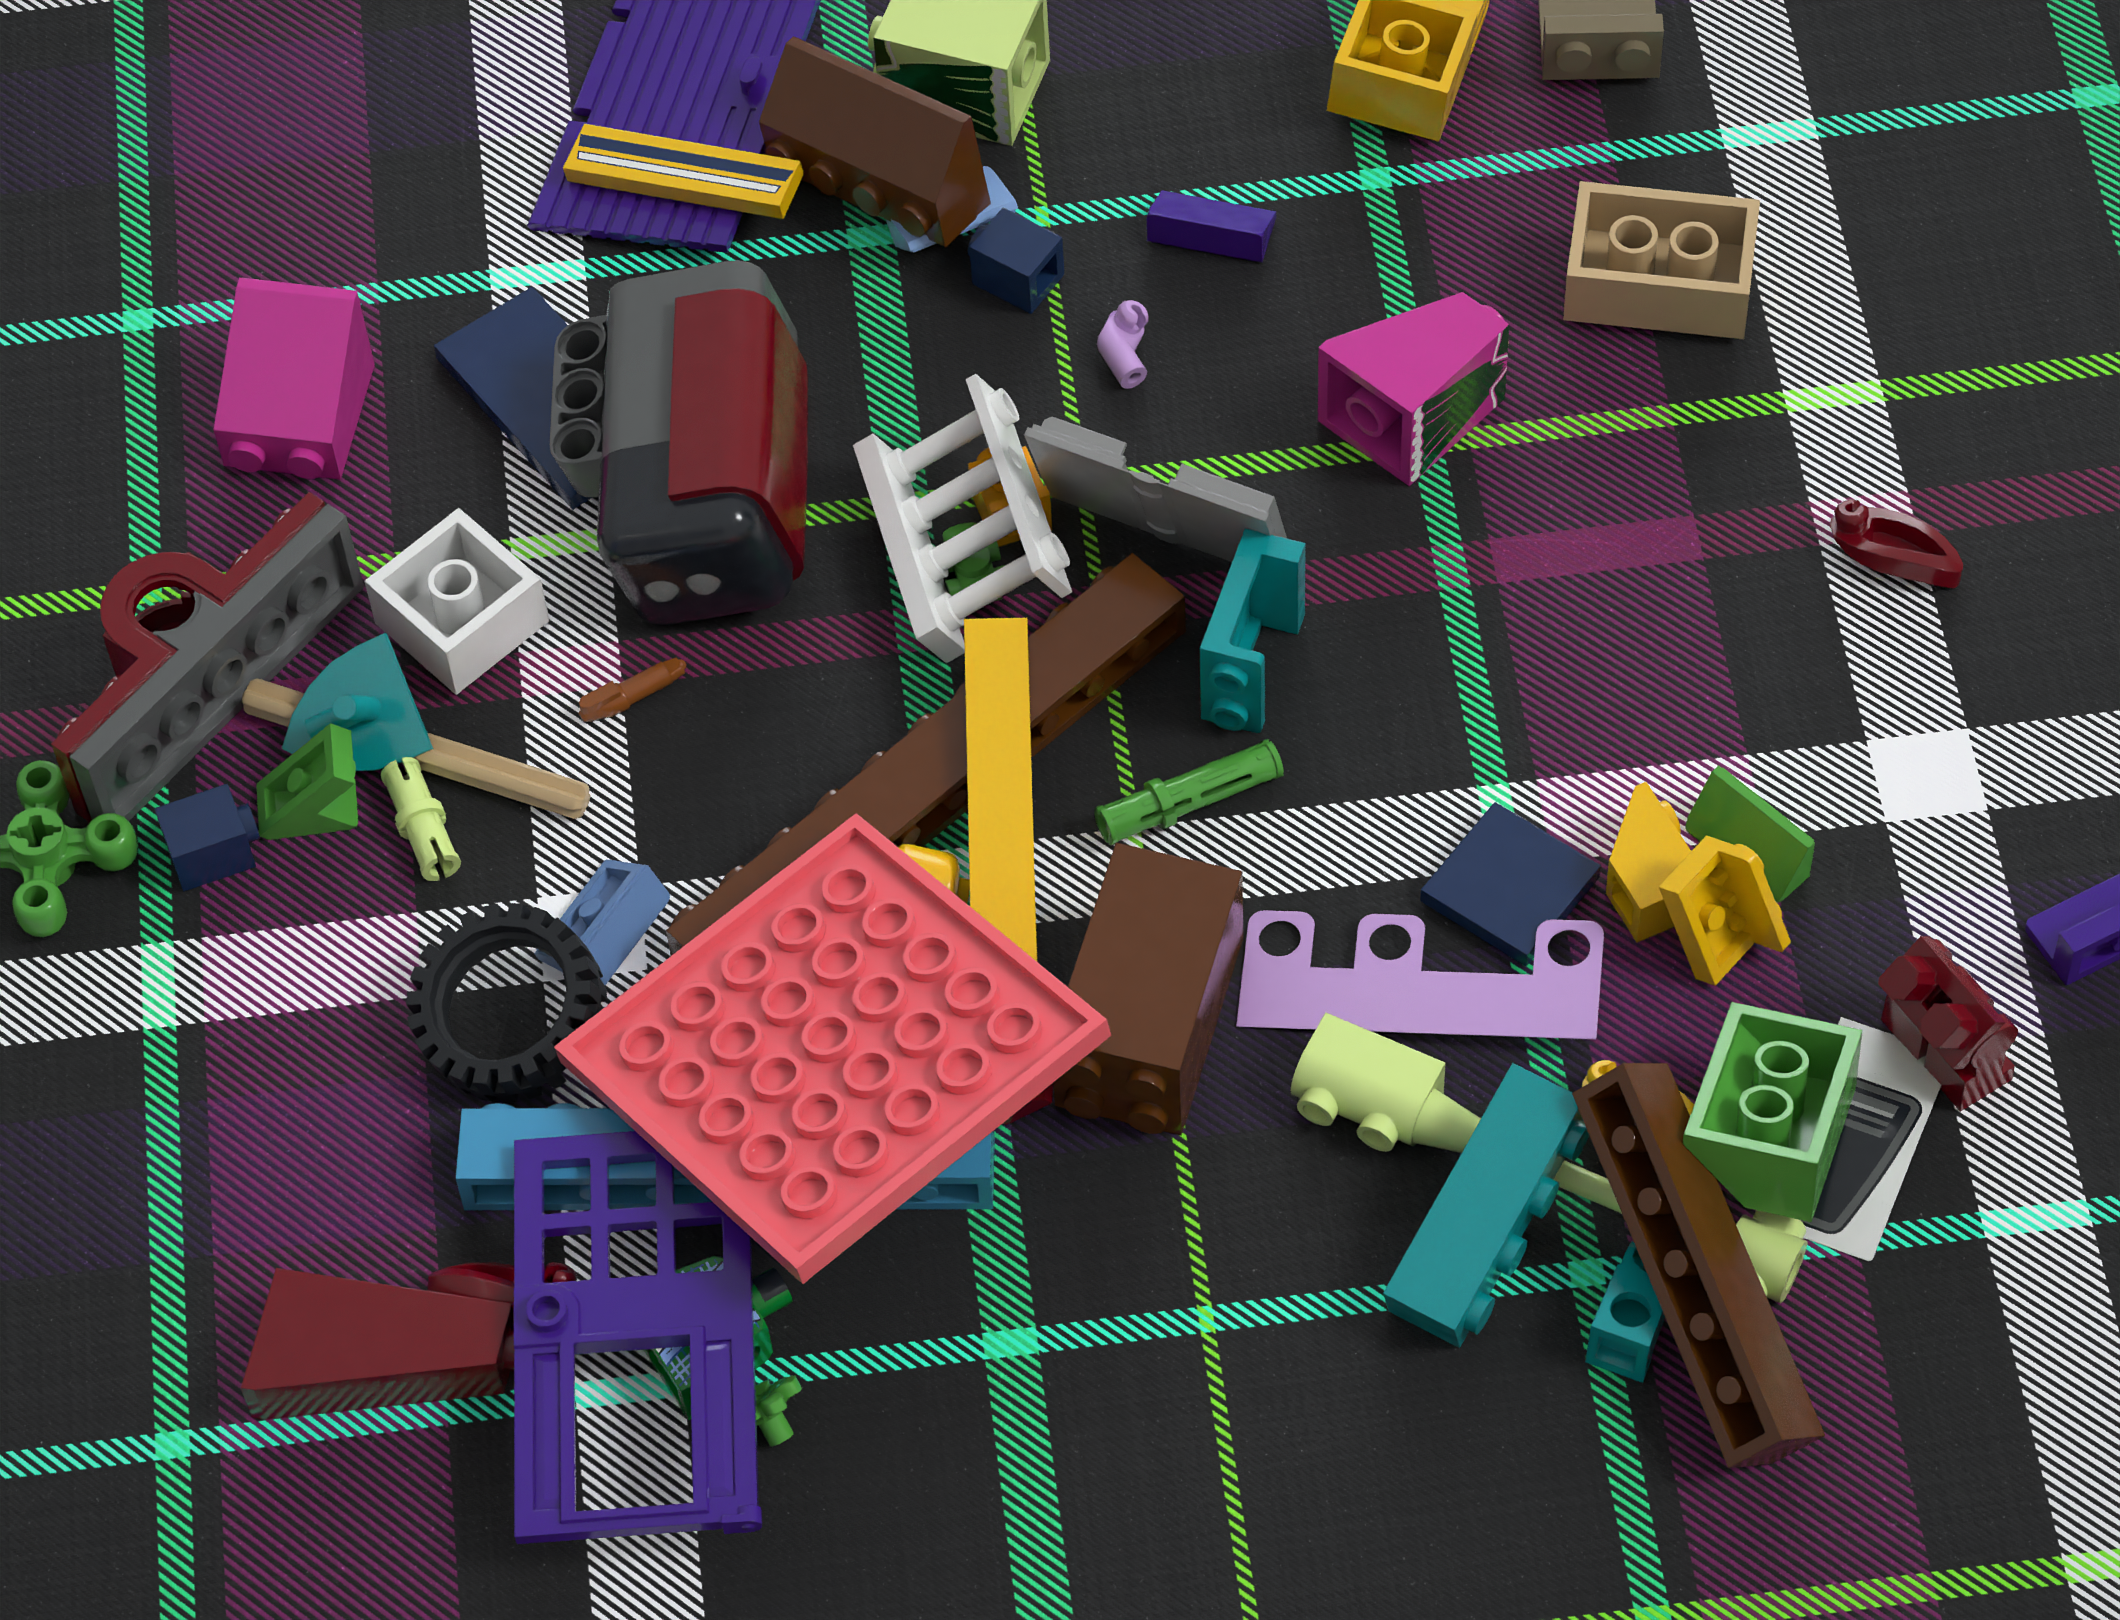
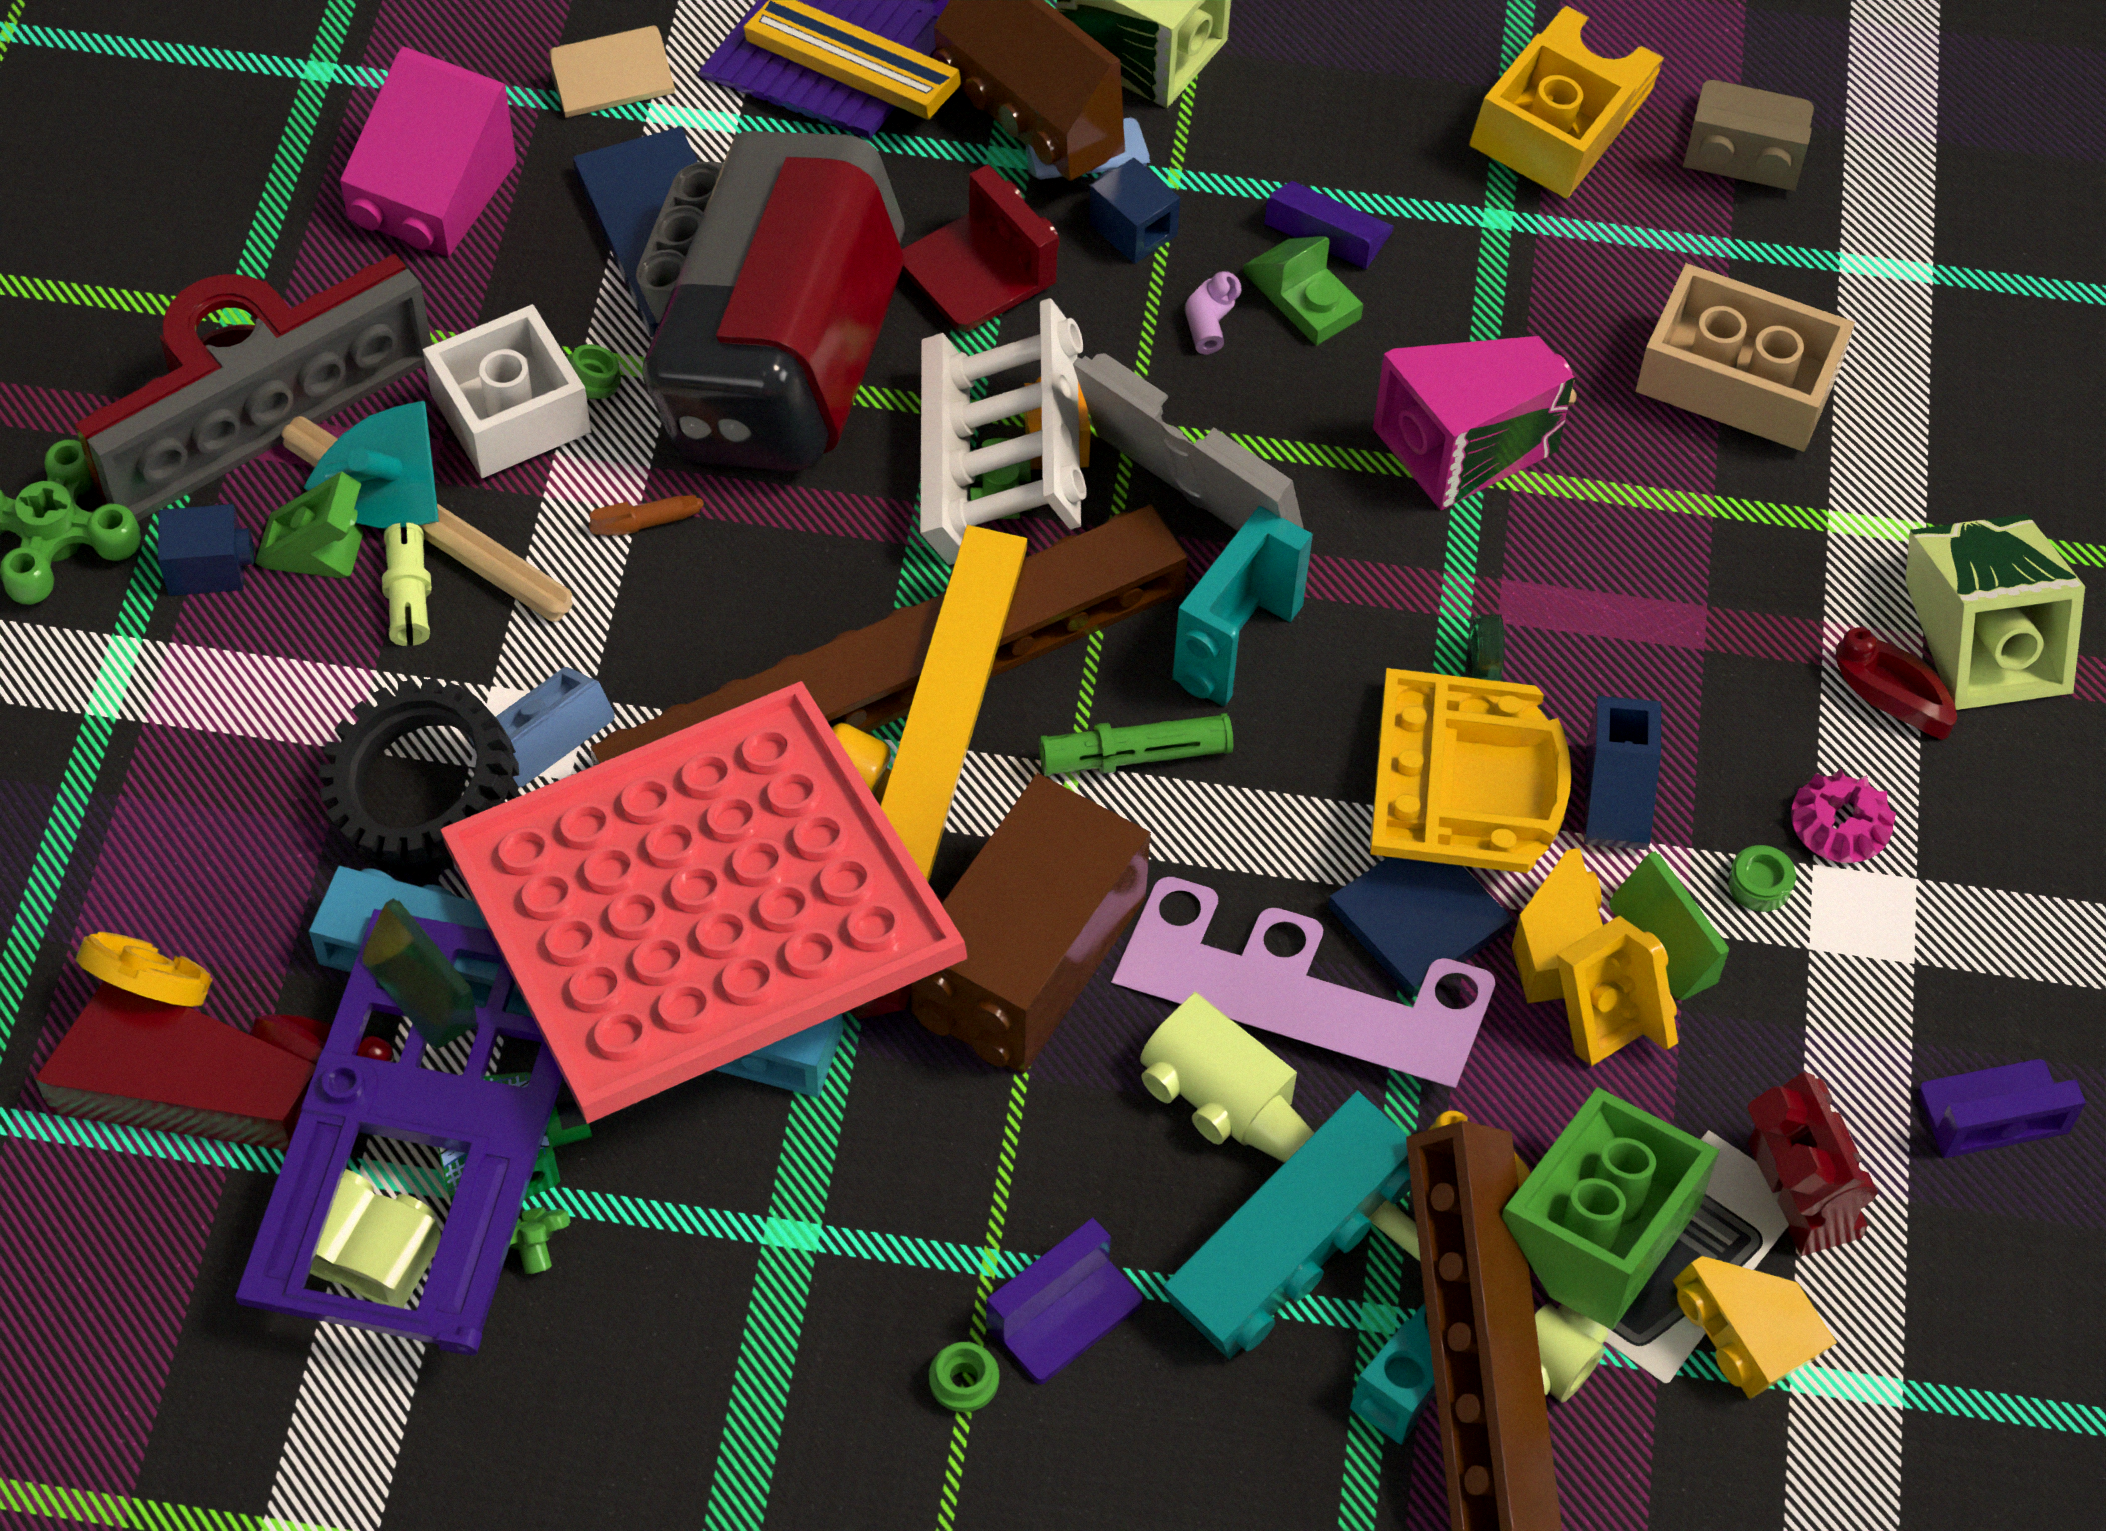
camera: 10 degrees right, 0 degrees up
(307, 1258) = (141, 970): none -> yellow tile
(441, 247) = (611, 71): none -> tan slope
(538, 554) = (597, 370): none -> bright green plate
(586, 1191) = (419, 977): none -> clear green slope
(624, 1453) = (376, 1242): none -> yellowish green brick
(885, 343) = (985, 257): none -> dark red bracket
(1207, 297) = (1303, 287): none -> bright green slope
(1219, 1411) = (964, 1358): none -> bright green plate
(1289, 1338) = (1061, 1304): none -> dark purple panel
(1498, 612) = (1487, 647): none -> clear green tile
(1516, 736) = (1467, 772): none -> yellow slope
(1663, 698) = (1622, 772): none -> dark blue slope
(1822, 766) = (1762, 878): none -> bright green tile
(1905, 698) = (1860, 835): none -> dark pink gear
(1936, 1180) = (1754, 1320): none -> yellow slope
(1971, 449) = (1996, 609): none -> yellowish green slope

